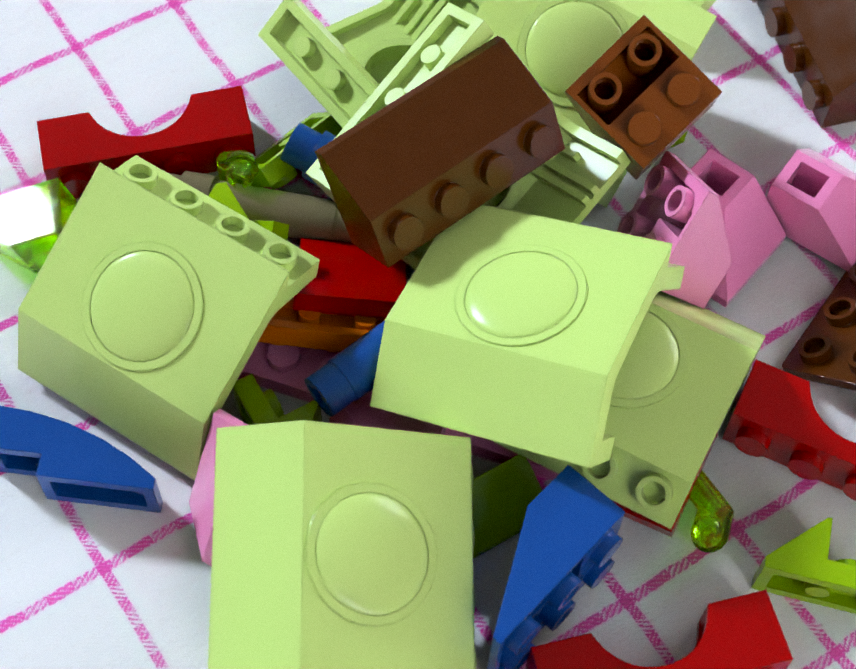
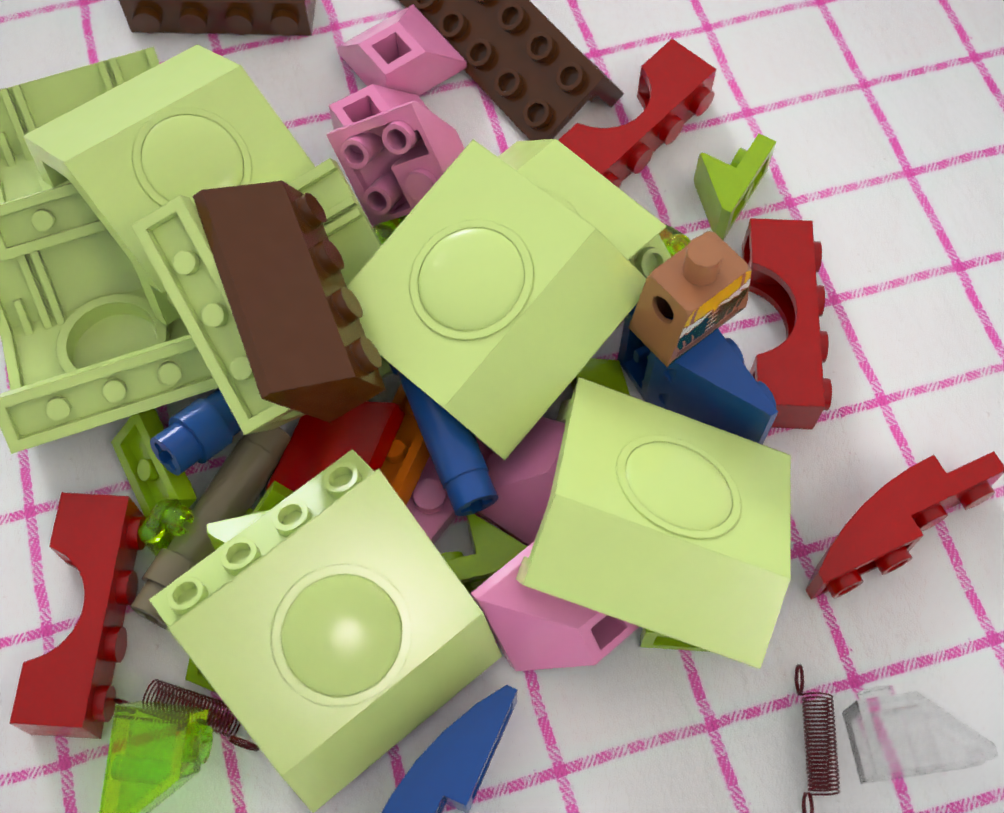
camera: 70 degrees left, 5 degrees up
(590, 508) = (697, 288): none -> nougat torso
(642, 95) = (282, 118): dark orange slope -> none

